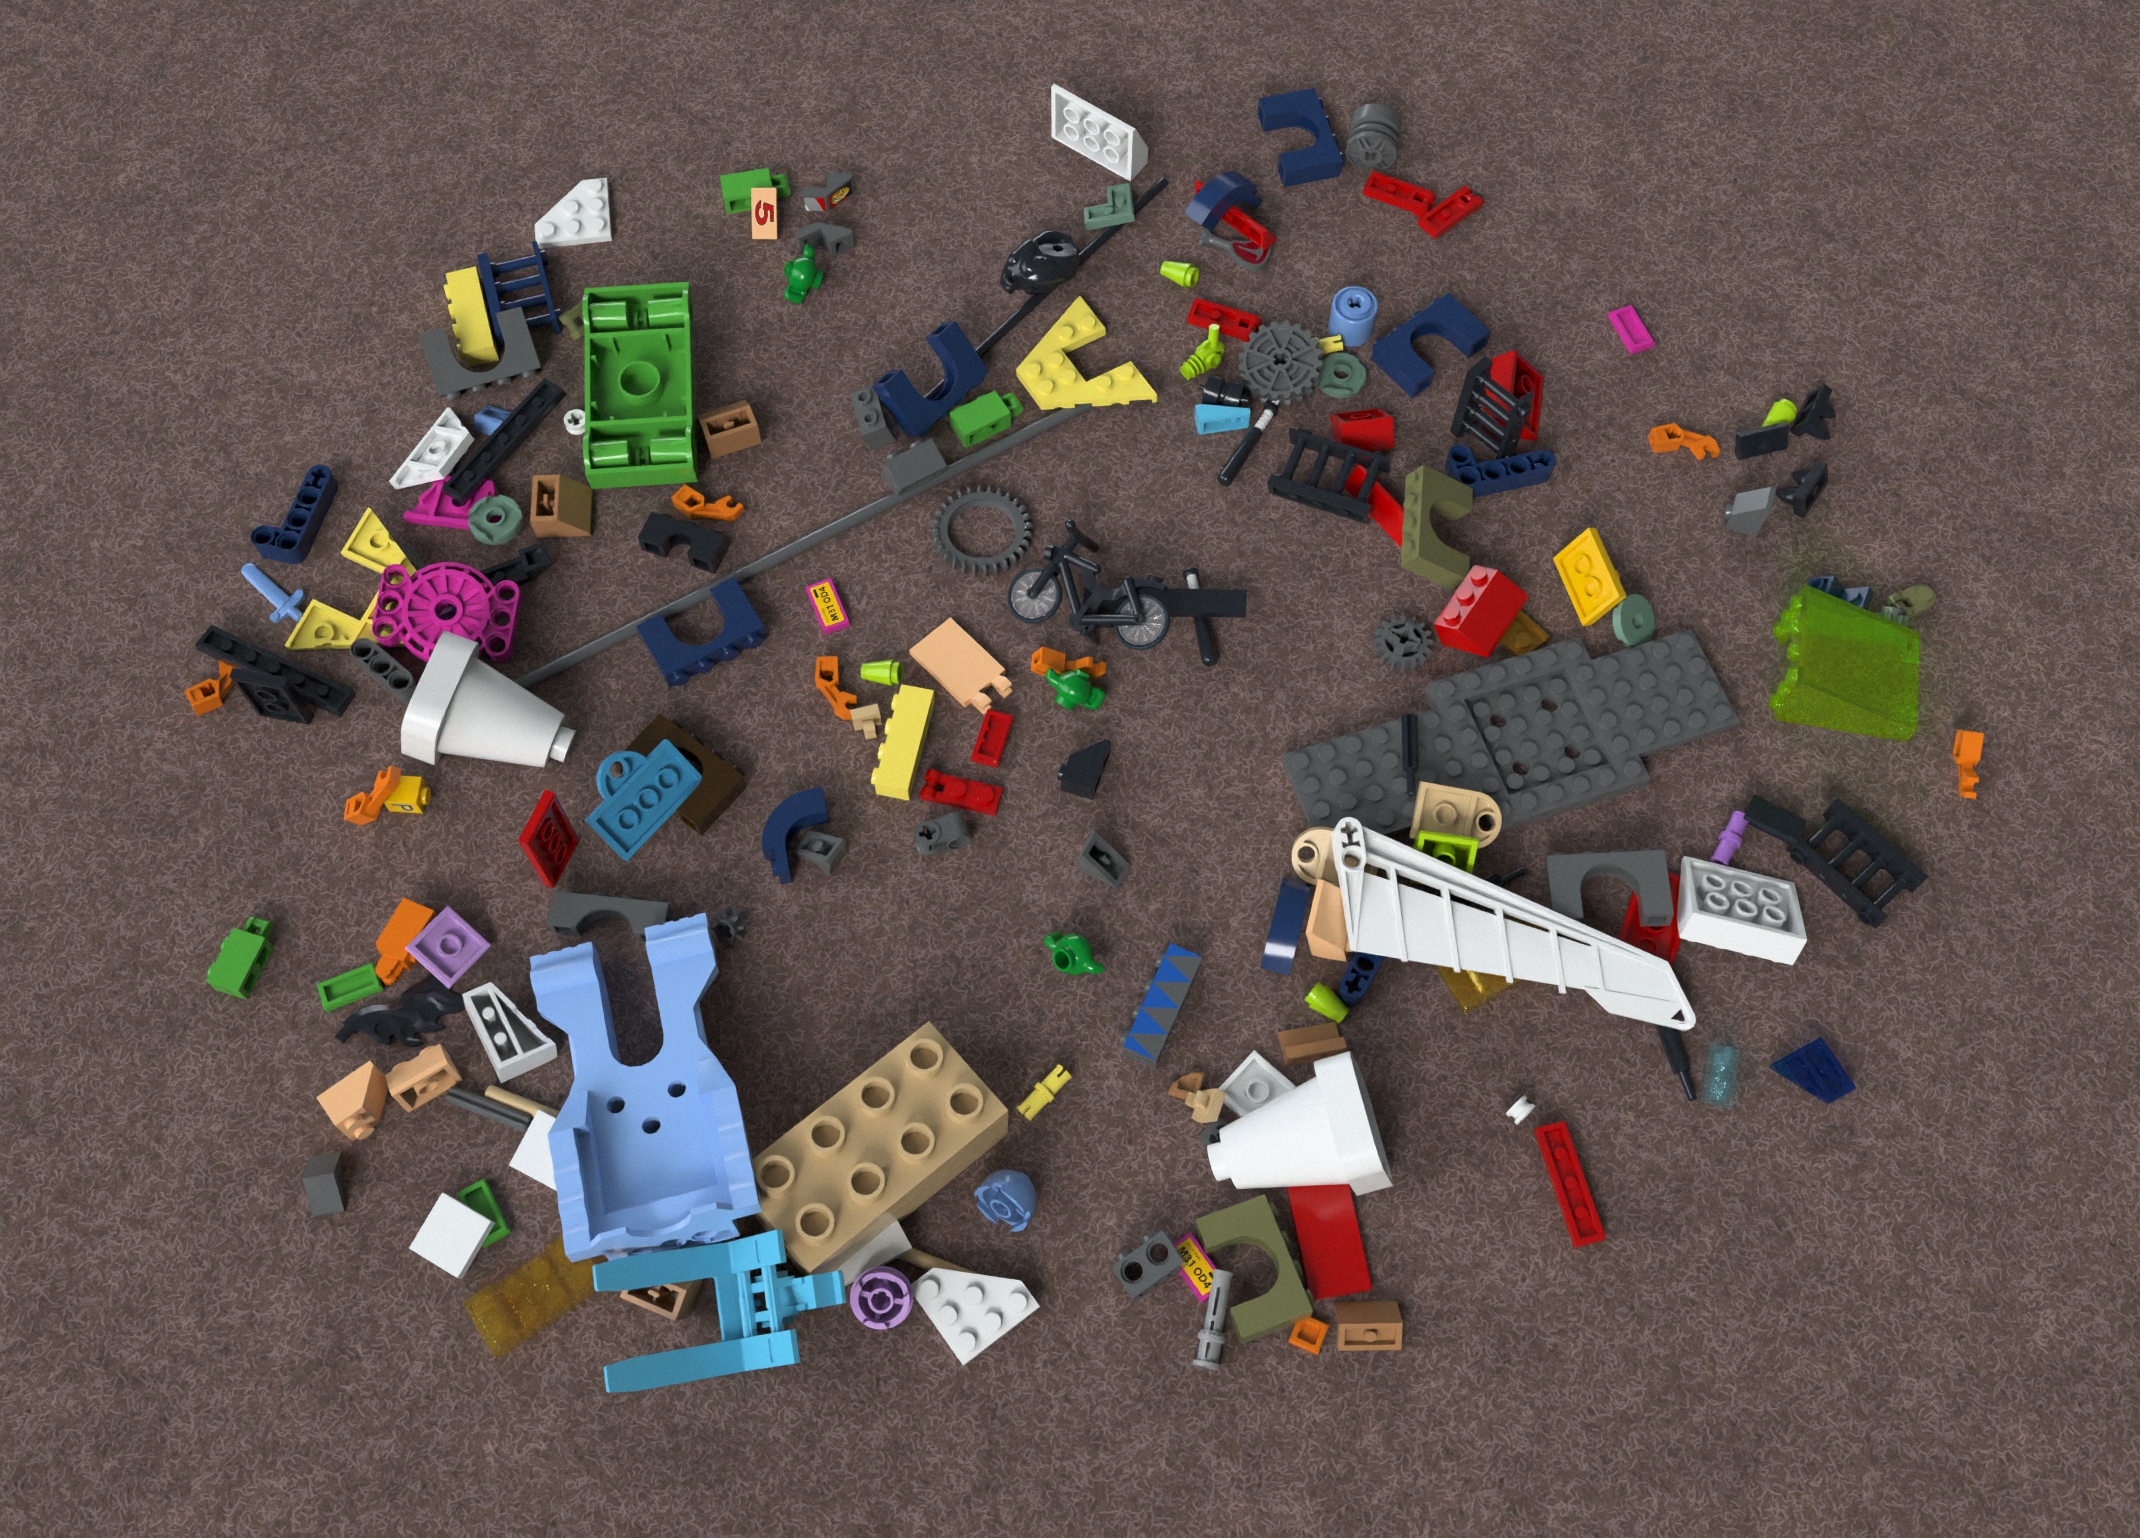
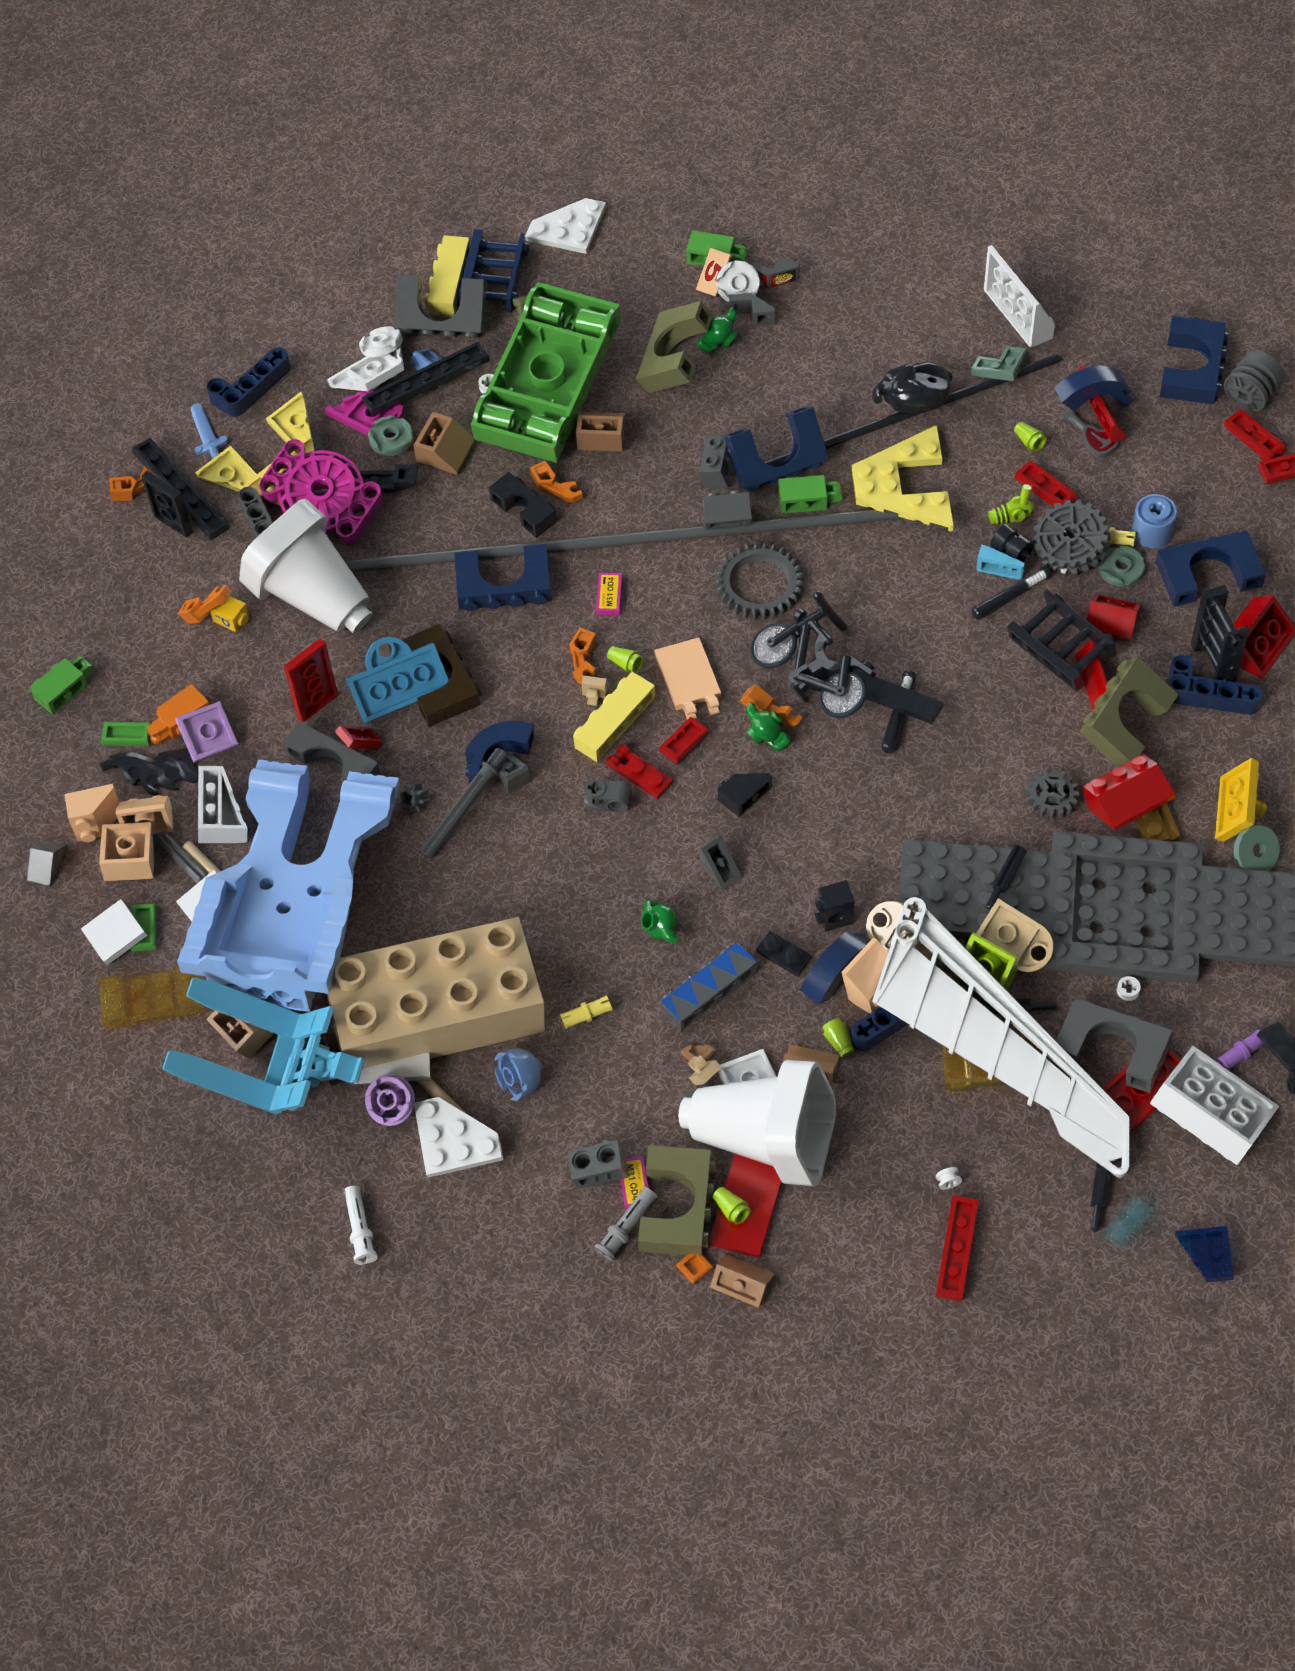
camera: 30 degrees right, 5 degrees down
(422, 1131) = (127, 851): none -> light nougat slope
(431, 417) = (381, 342): none -> white tile
(632, 881) = (359, 737): none -> red plate
(748, 291) = (659, 368): none -> olive arch
(789, 909) = (464, 803): none -> dark grey axle
(794, 211) = (737, 278): none -> white tile
(926, 1474) = (360, 1235): none -> white pin
(1219, 933) = (783, 953): none -> black tile
(1252, 858) = (835, 906): none -> black brick
(1318, 1247) = (732, 1206): none -> lime cone
(1588, 813) = (1135, 985): none -> white bush

